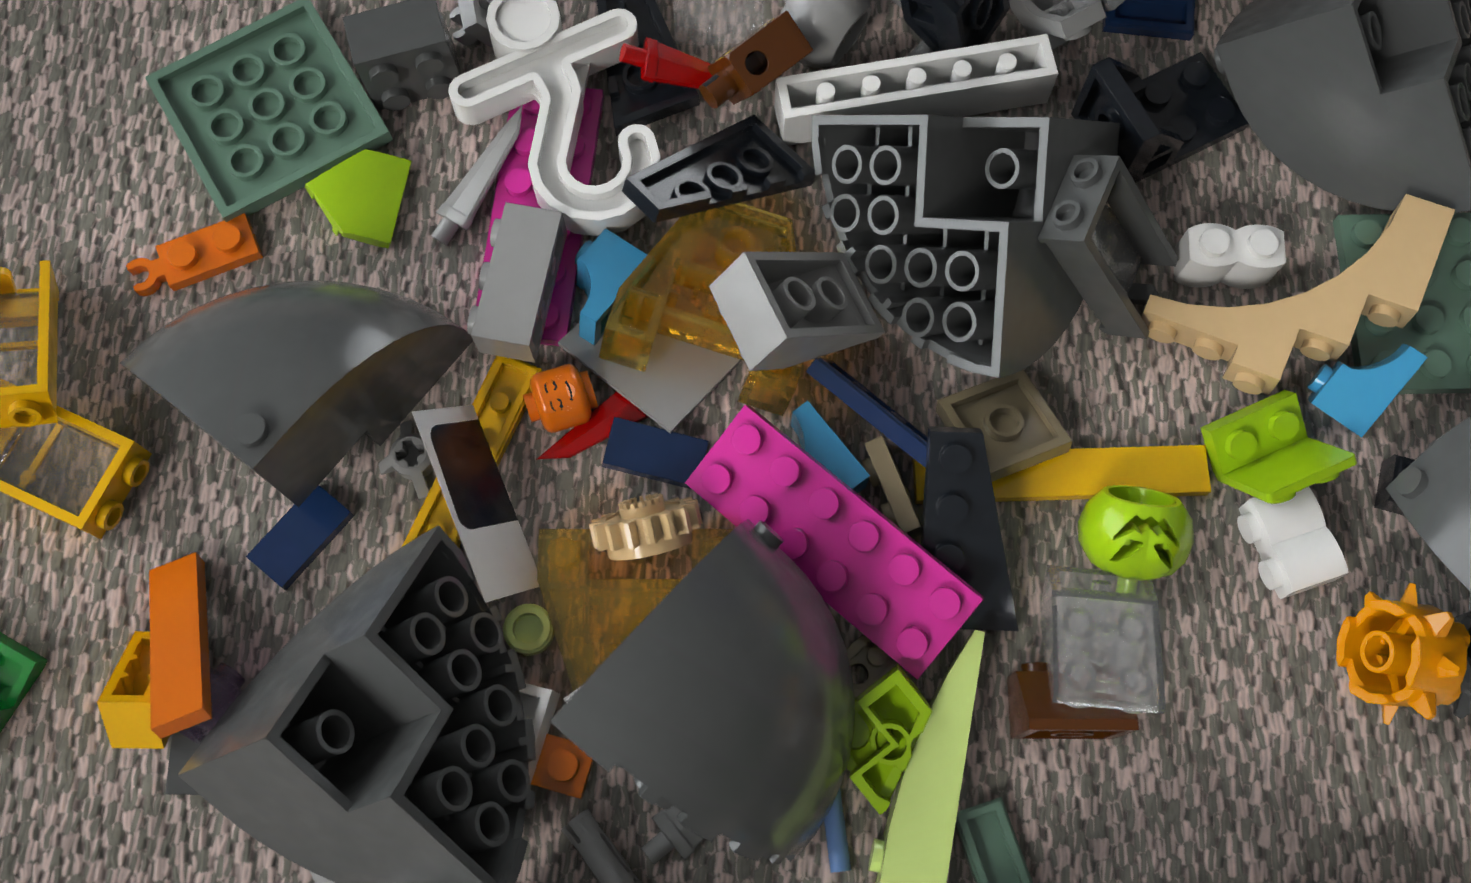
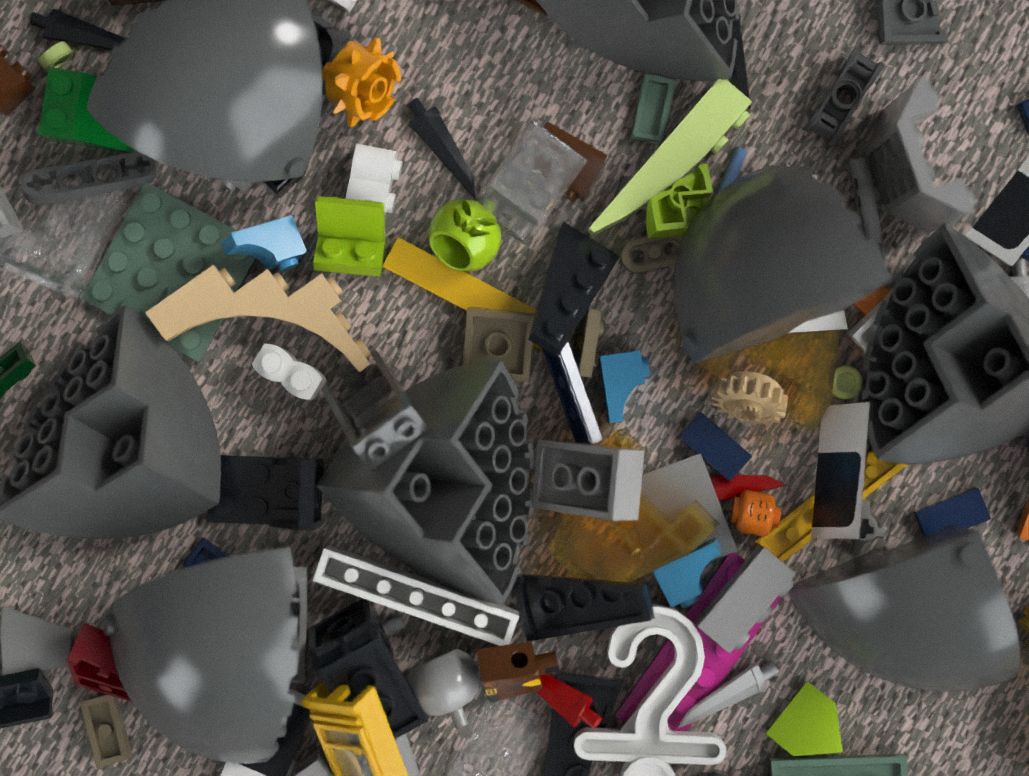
camera: 150 degrees left, 15 degrees up
(198, 256) = (930, 741): orange plate -> none
(838, 539) = (645, 329): dark pink plate -> none
(1250, 652) = (437, 137): none -> black bar

